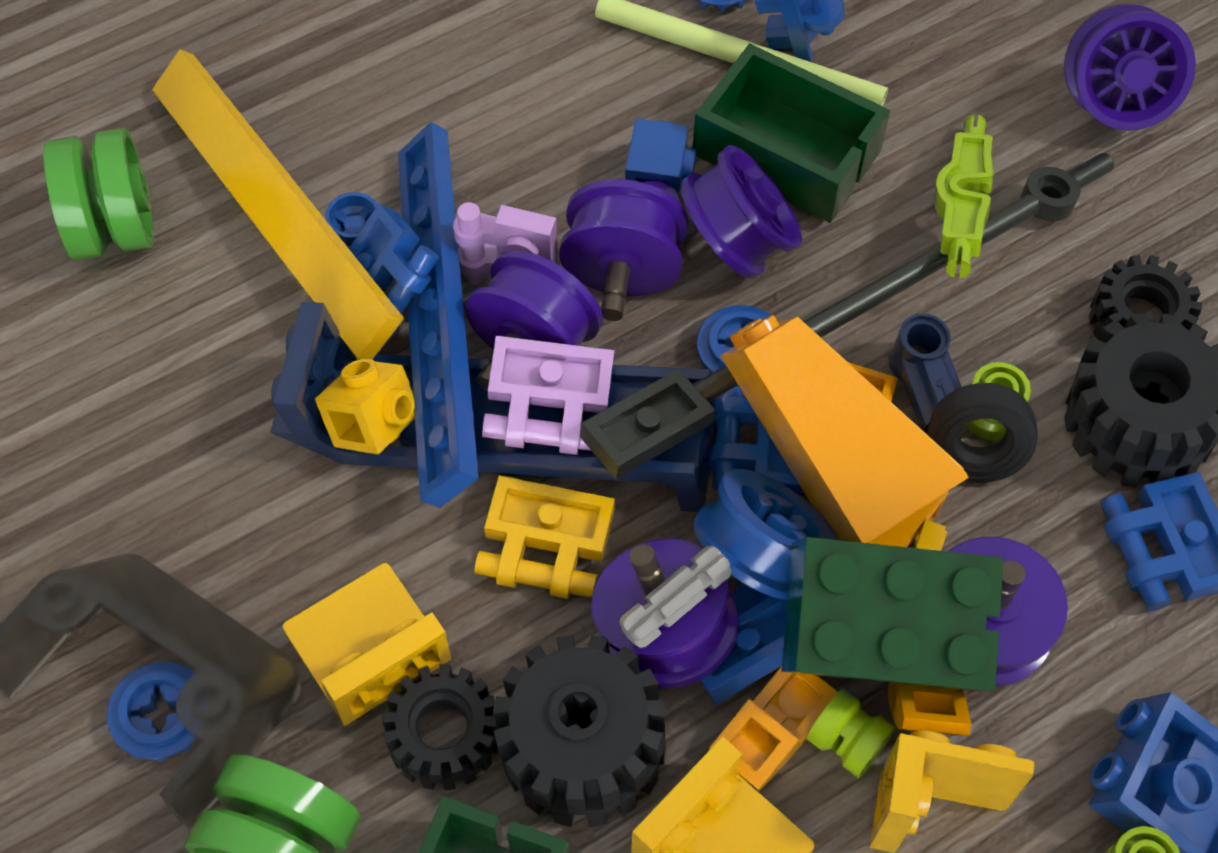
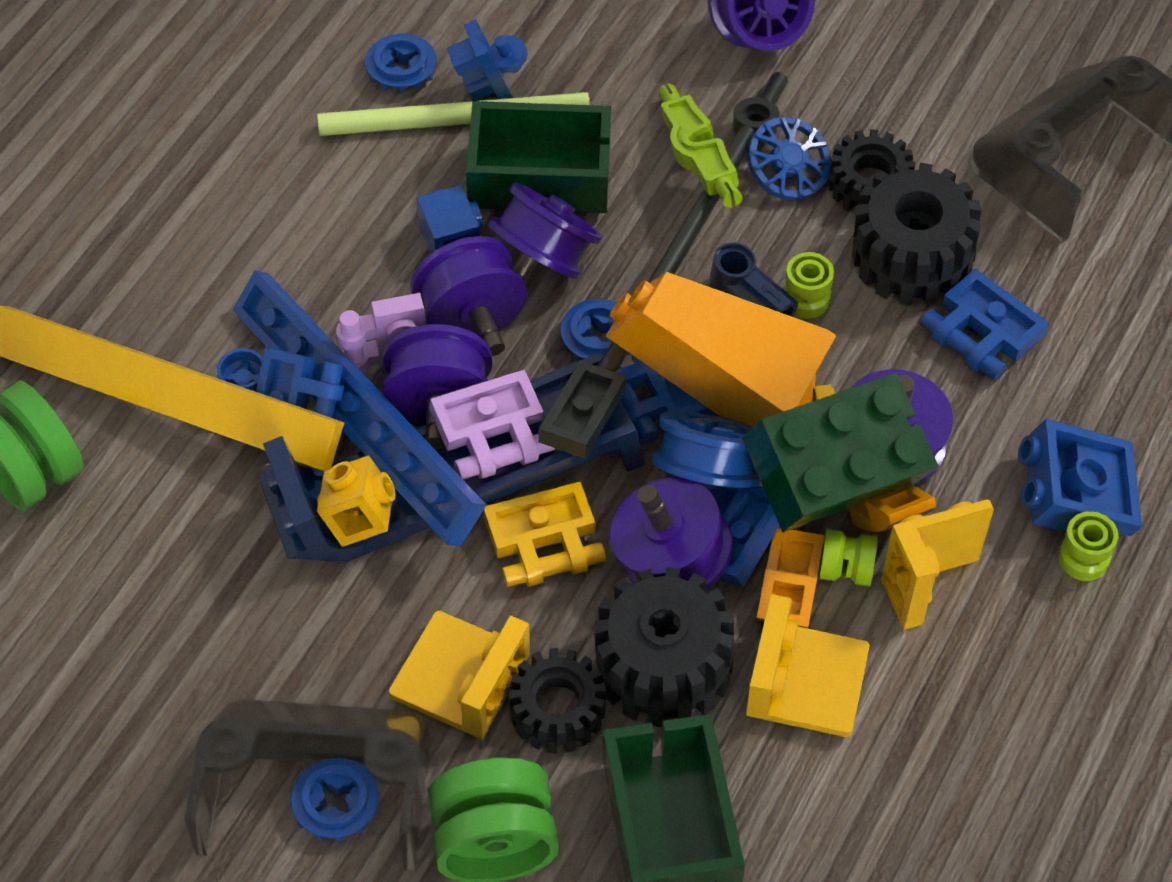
camera: 30 degrees left, 5 degrees down
(675, 596) = (682, 515): light grey axle -> none
(986, 402) = (817, 281): black tyre -> none
(1060, 251) = (789, 158): none -> blue wheel

